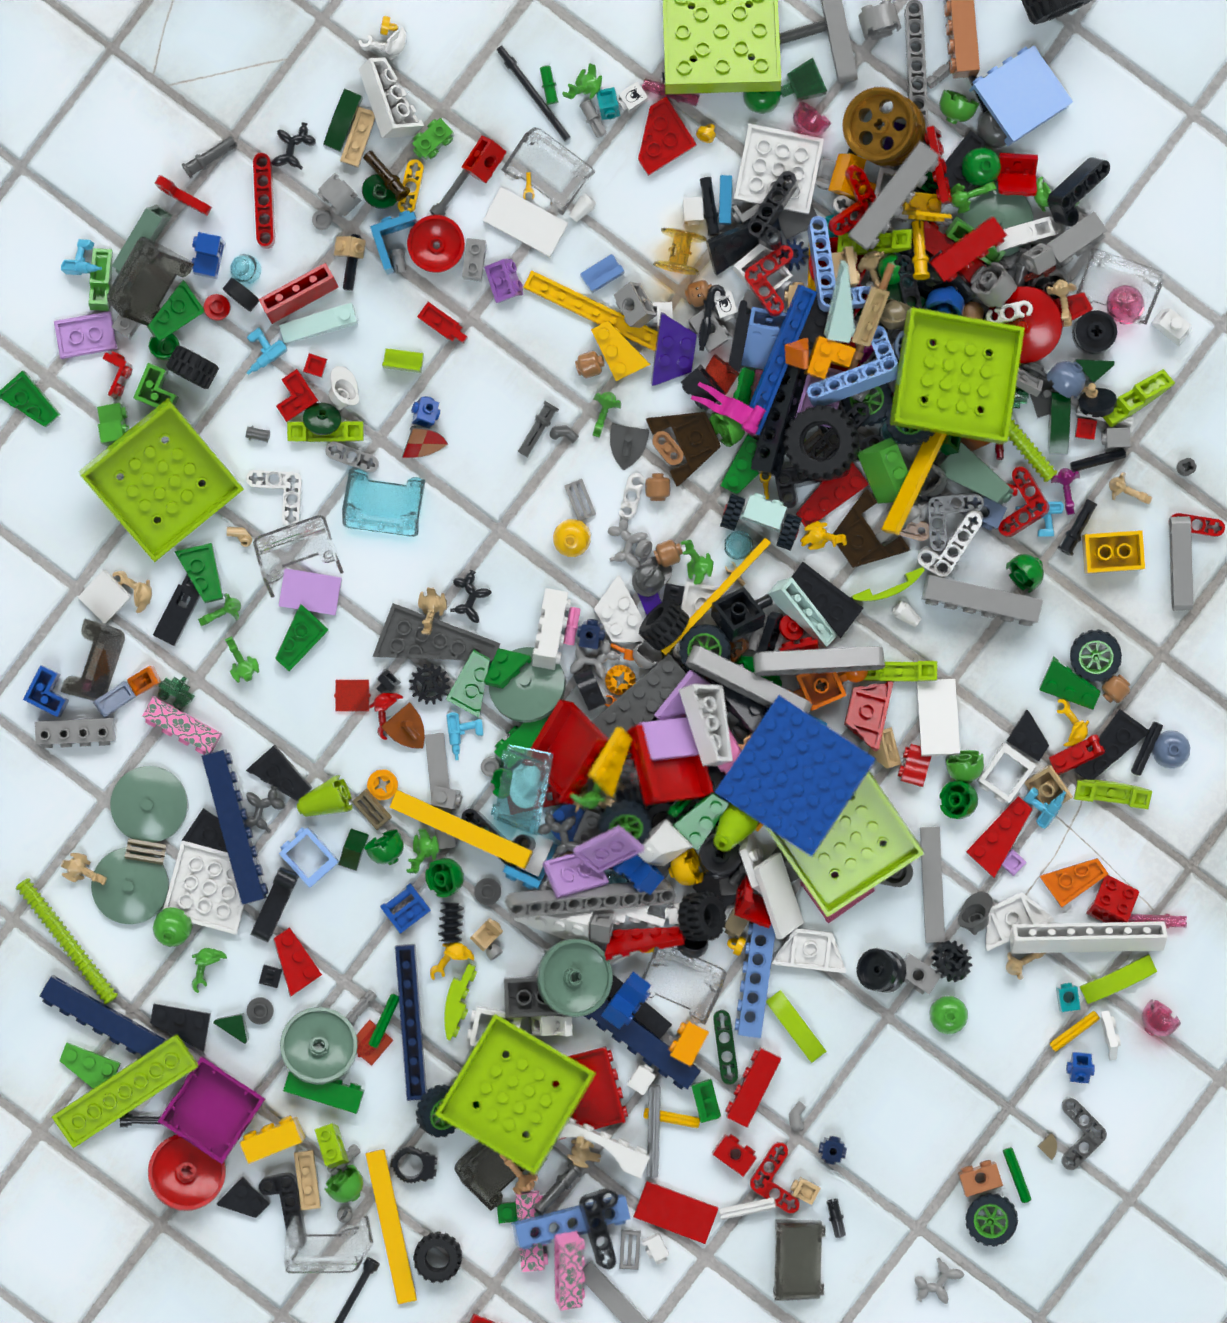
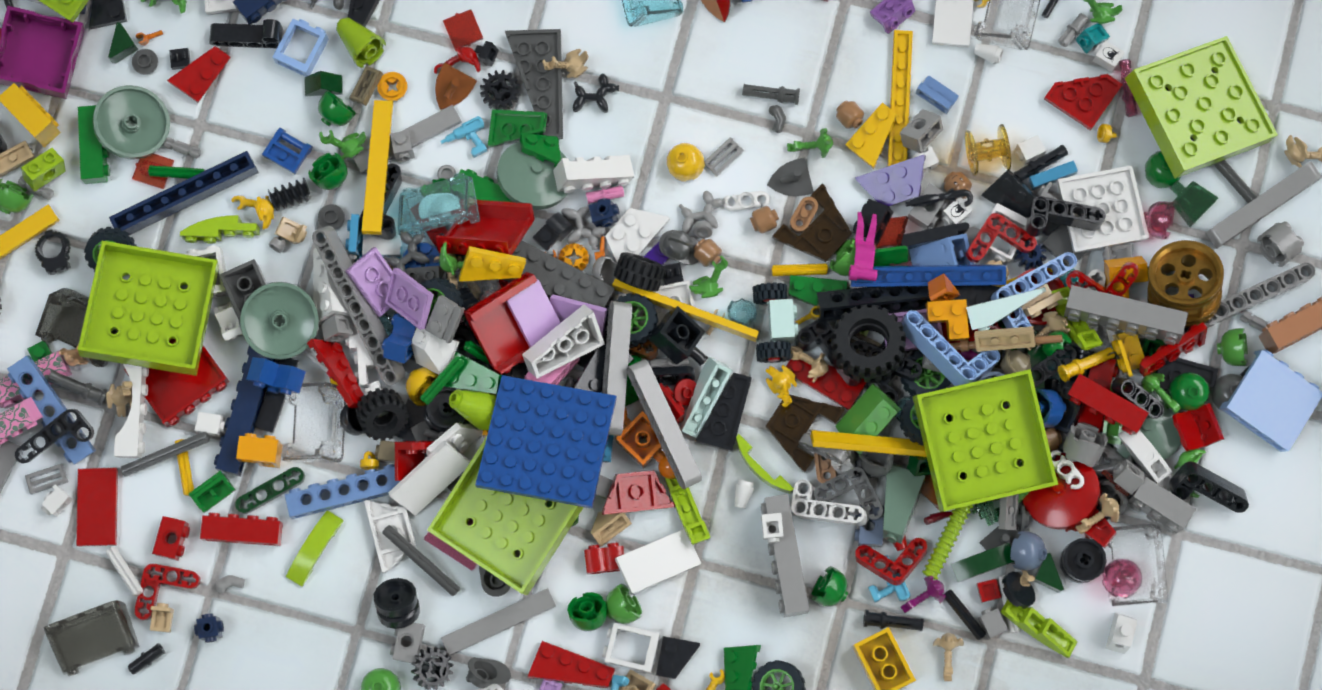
camera: 70 degrees right, 10 degrees down
(236, 997) = (145, 41): none -> orange hand
(644, 823) = (445, 319): none -> light grey plate
(694, 848) = (442, 379): none -> green axle
(718, 474) = (799, 269): none -> yellow axle
(820, 496) = (819, 366): none -> tan piece
(849, 933) = (422, 561): none -> dark grey axle
(950, 596) = (775, 520): none -> white brick
(965, 222) = (1131, 392): none -> black beam

